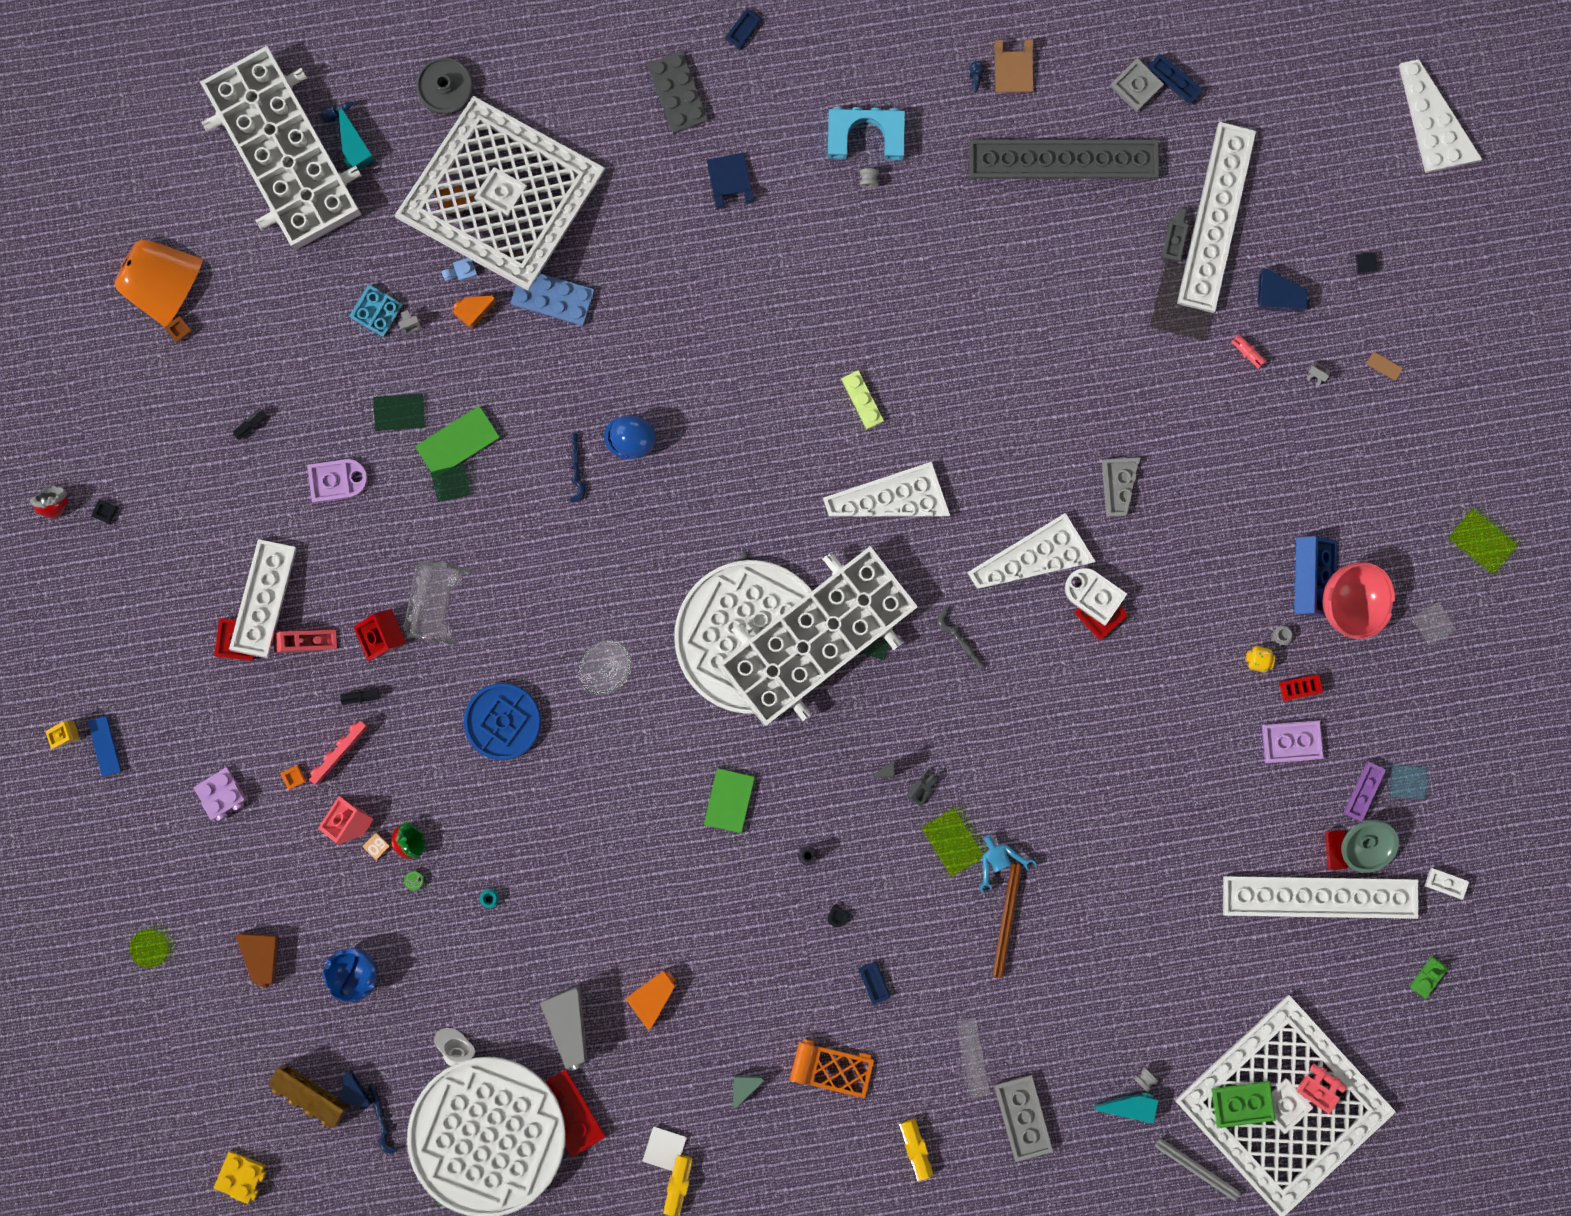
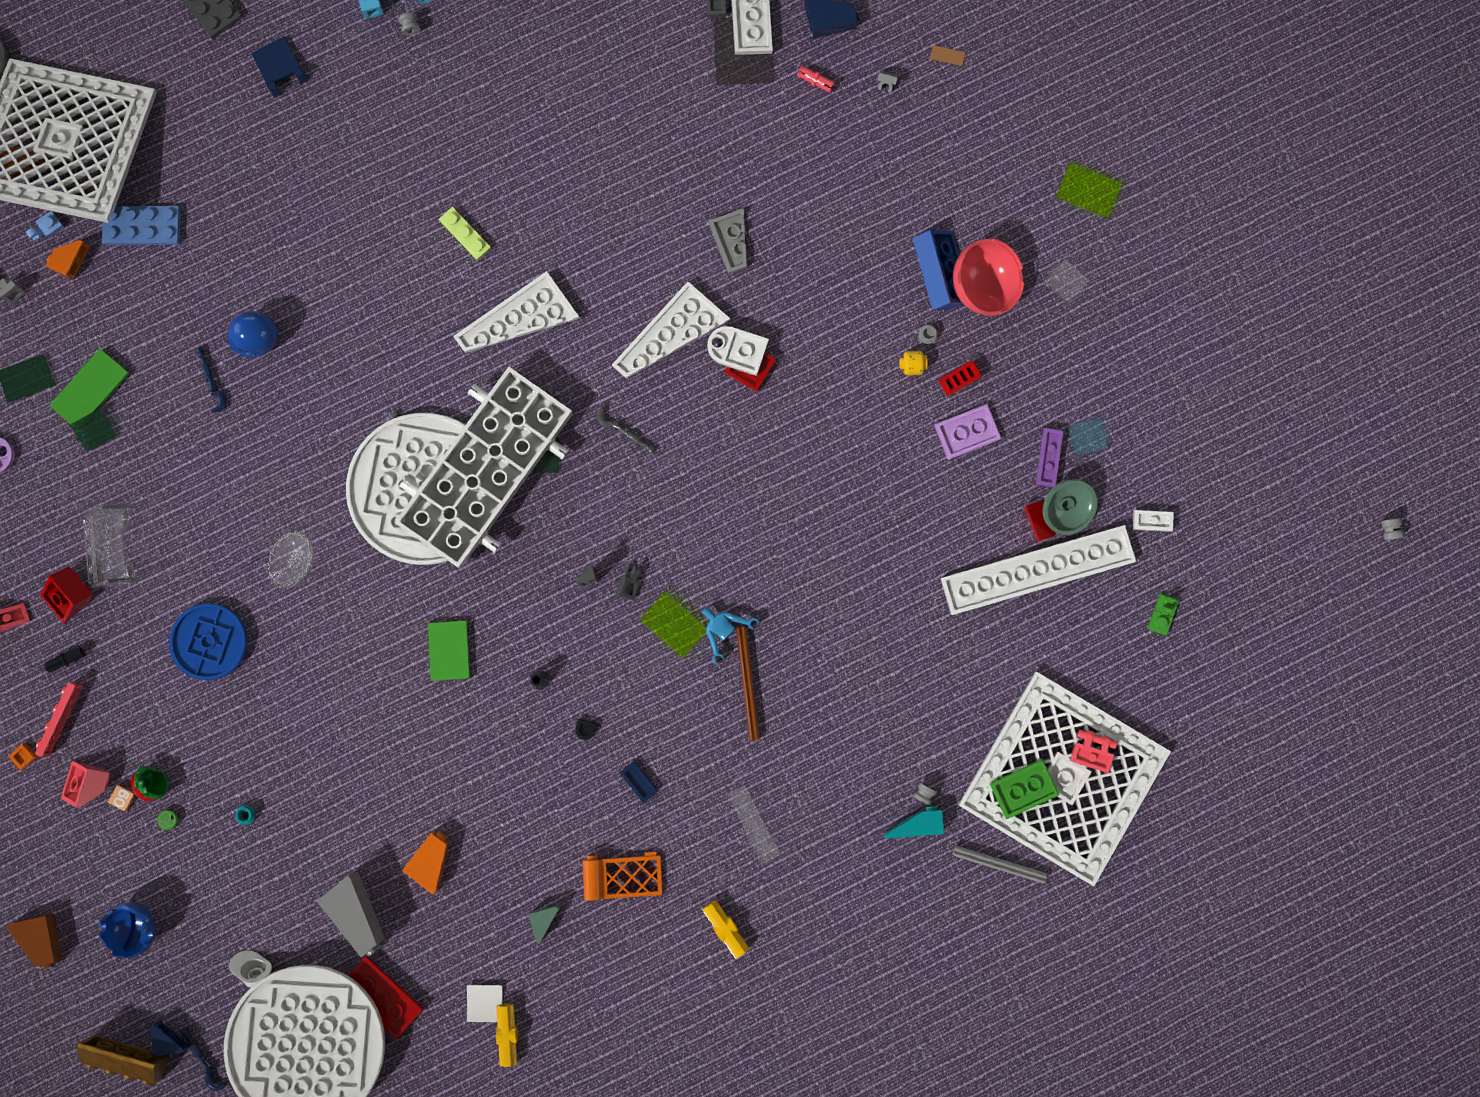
camera: 15 degrees left, 0 degrees up
(1023, 1118) = (819, 867): light grey plate -> none

